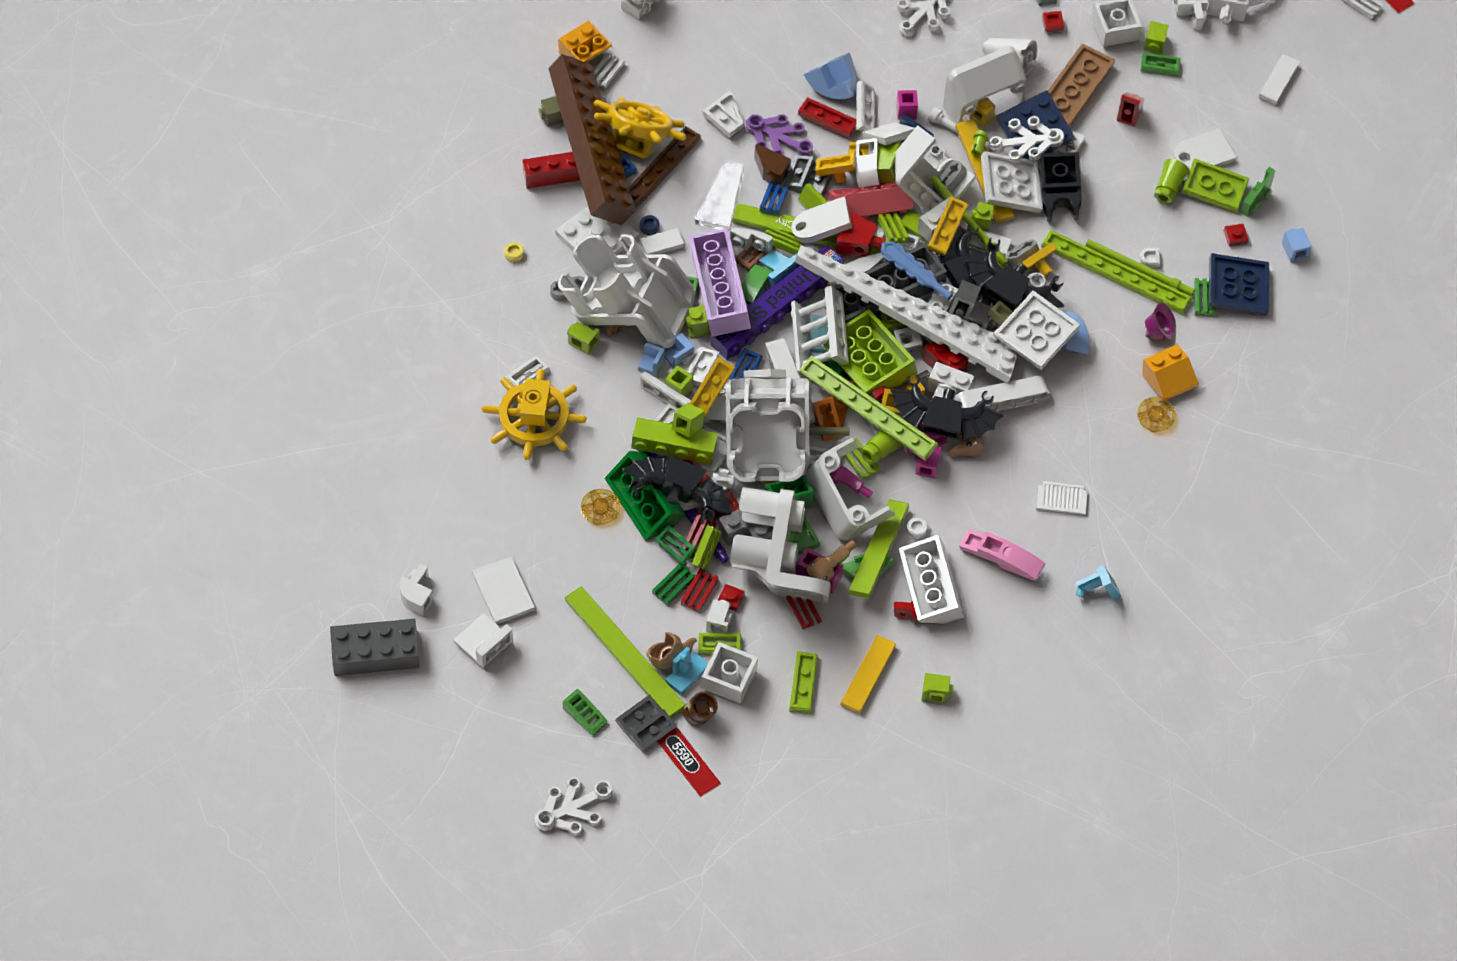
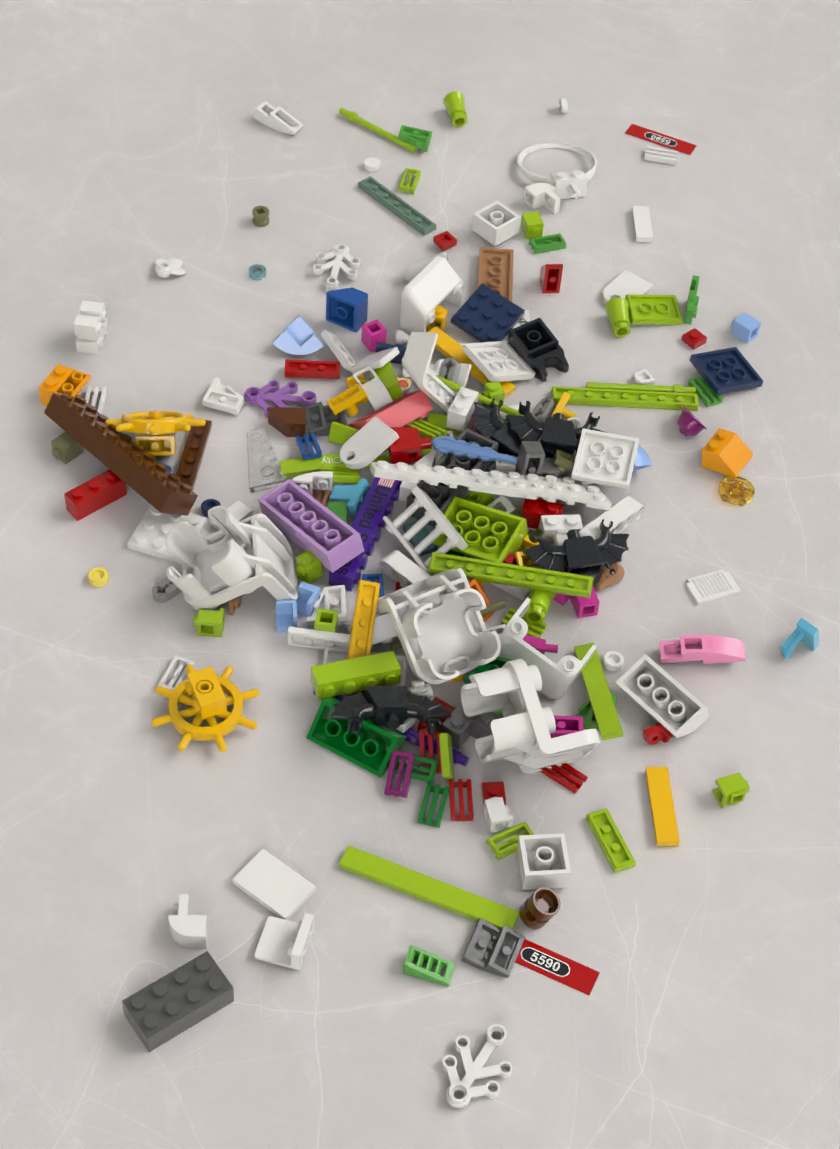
camera: 30 degrees left, 10 degrees down
(600, 506) = (319, 765): clear yellow wheel -> none
(662, 547) = (396, 793): none -> magenta tile
(663, 653) = (474, 868): medium nougat hair -> none
(686, 671) = (500, 880): medium azure piece -> none
(688, 419) = (362, 647): lime brick -> none
(765, 373) = (401, 583): white tile -> none
(823, 567) = (575, 716): medium nougat animal -> none
(899, 64) = (347, 308): none -> blue slope
(947, 226) = (477, 407): yellow tile -> none
(980, 139) = (453, 338): lime pin -> none
(1028, 140) = (511, 315): white plant -> none

